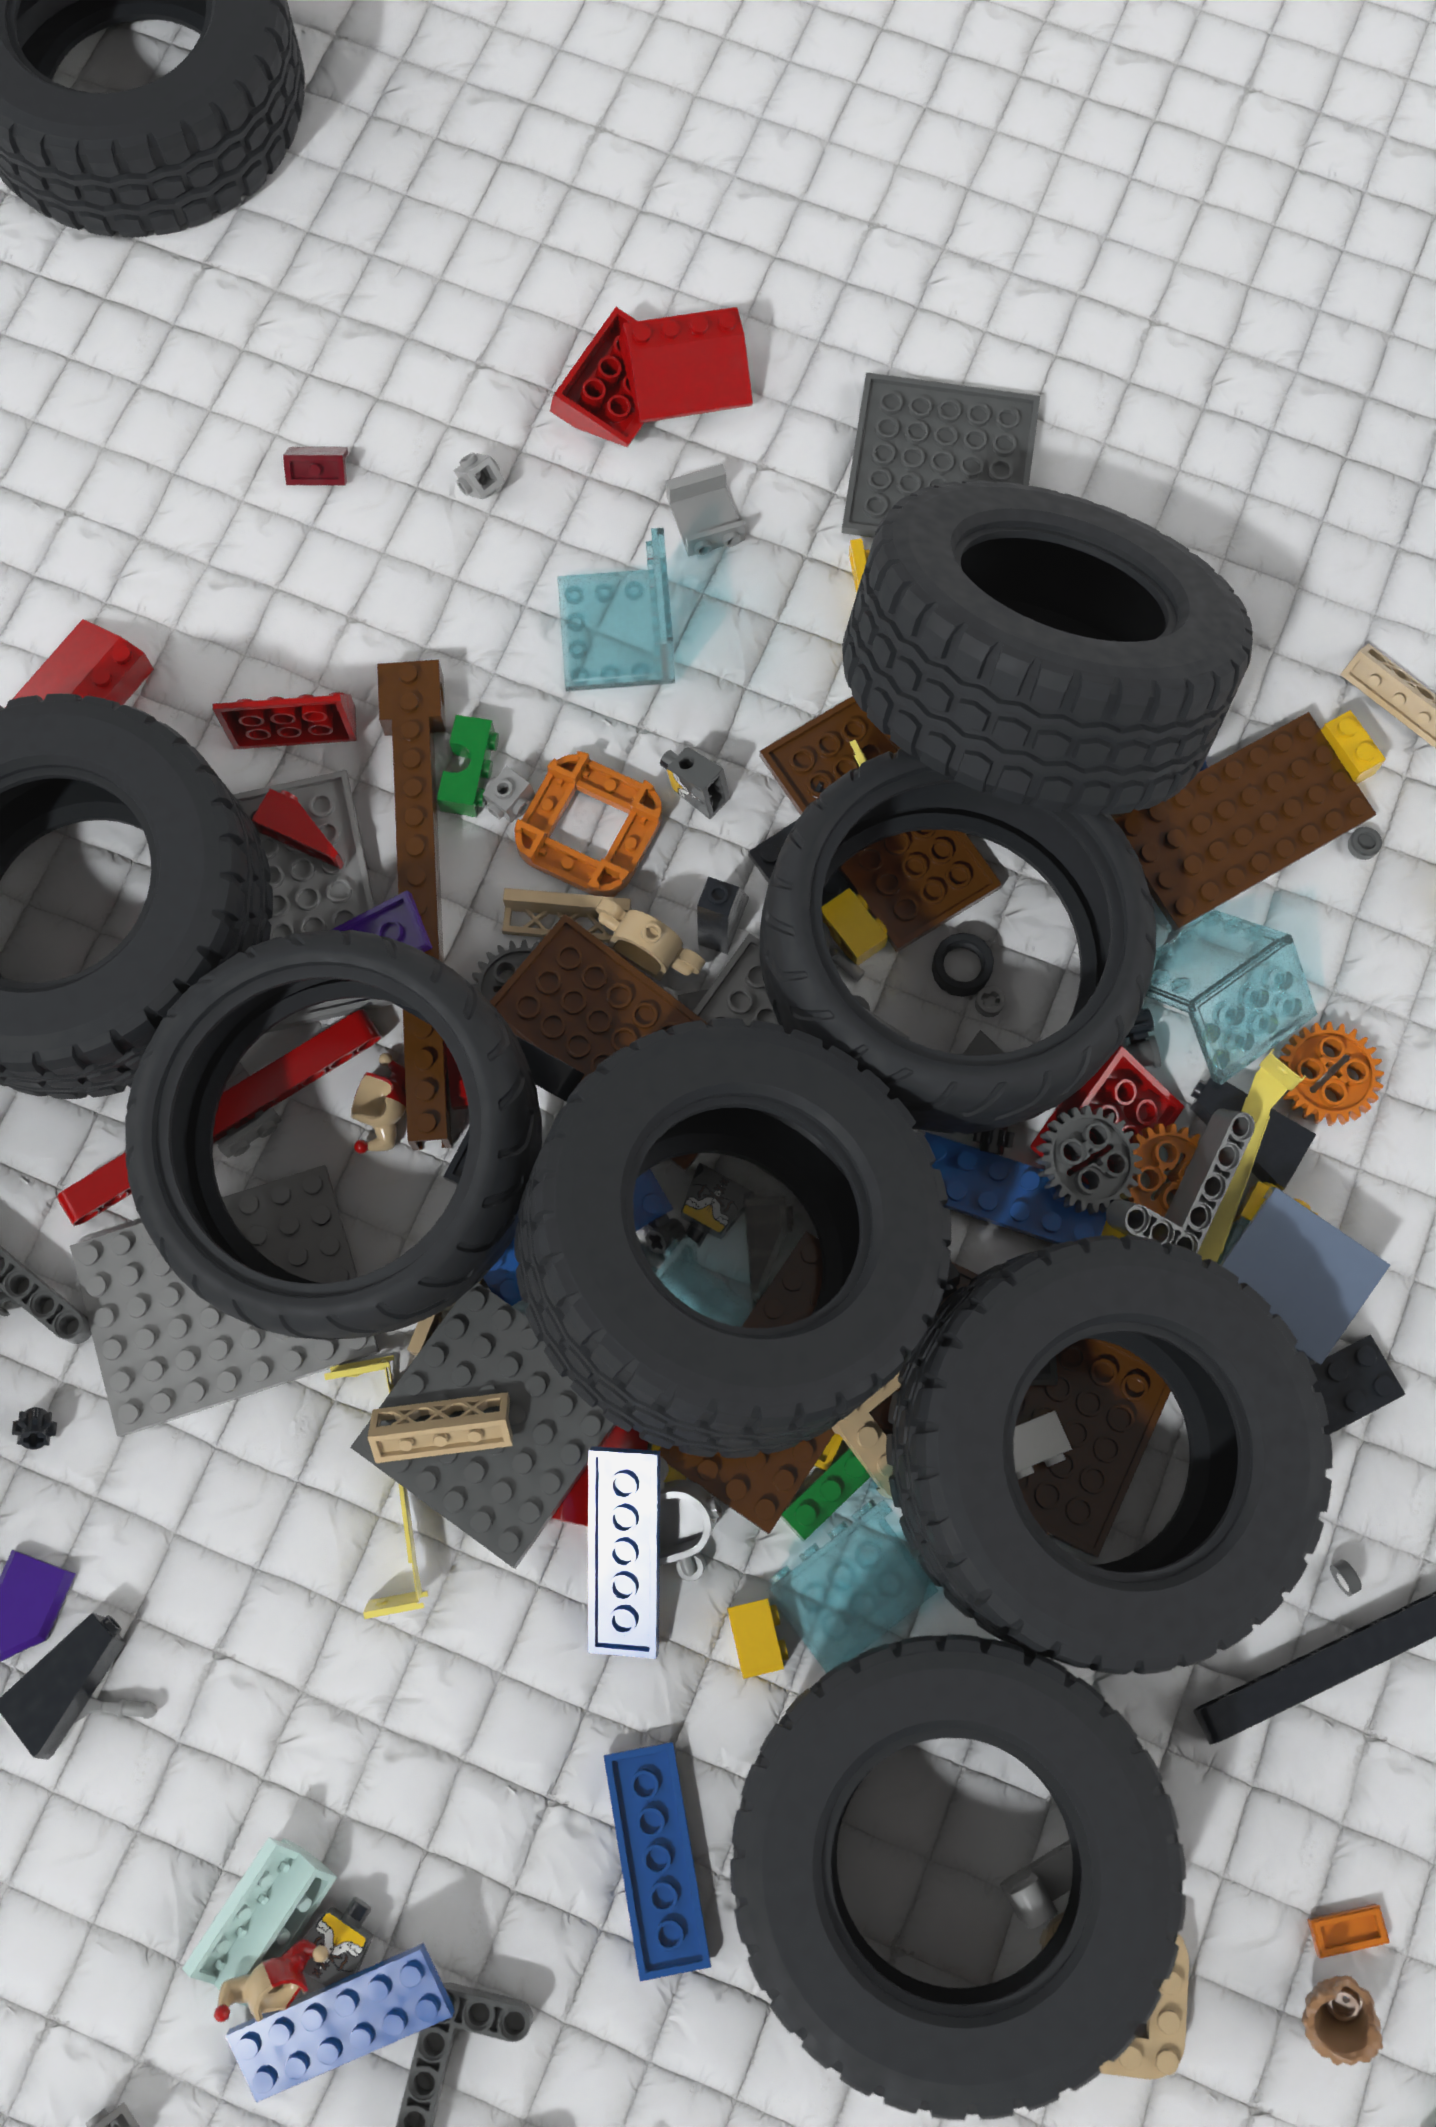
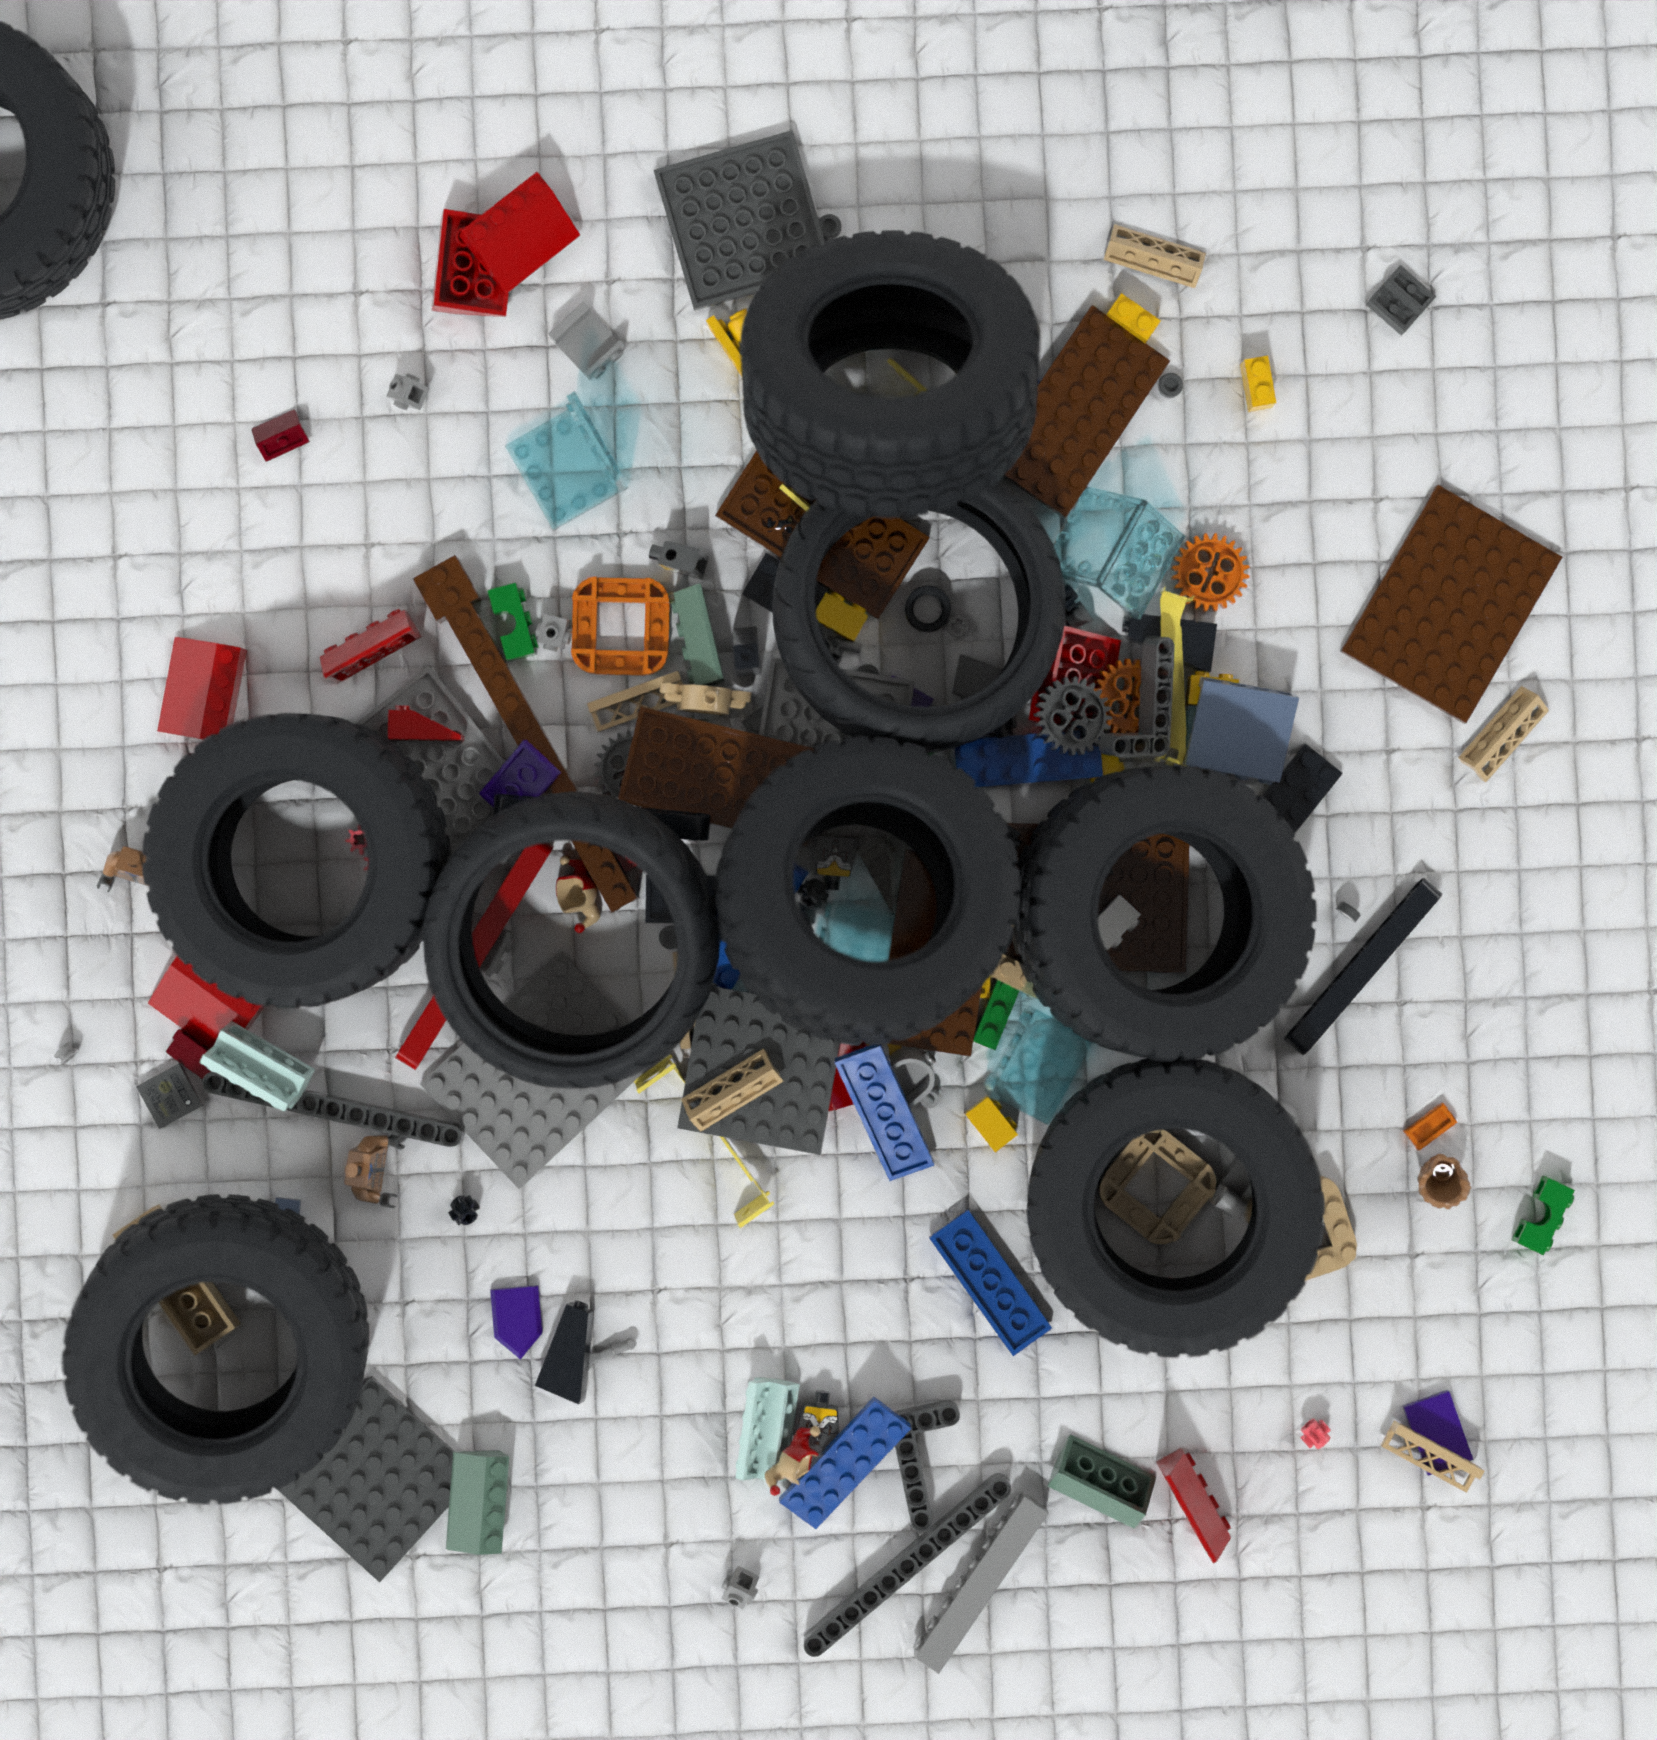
camera: 20 degrees left, 15 degrees up
(675, 866) = (698, 636): none -> sand green slope
(965, 1880) = (1183, 1208): none -> tan plate

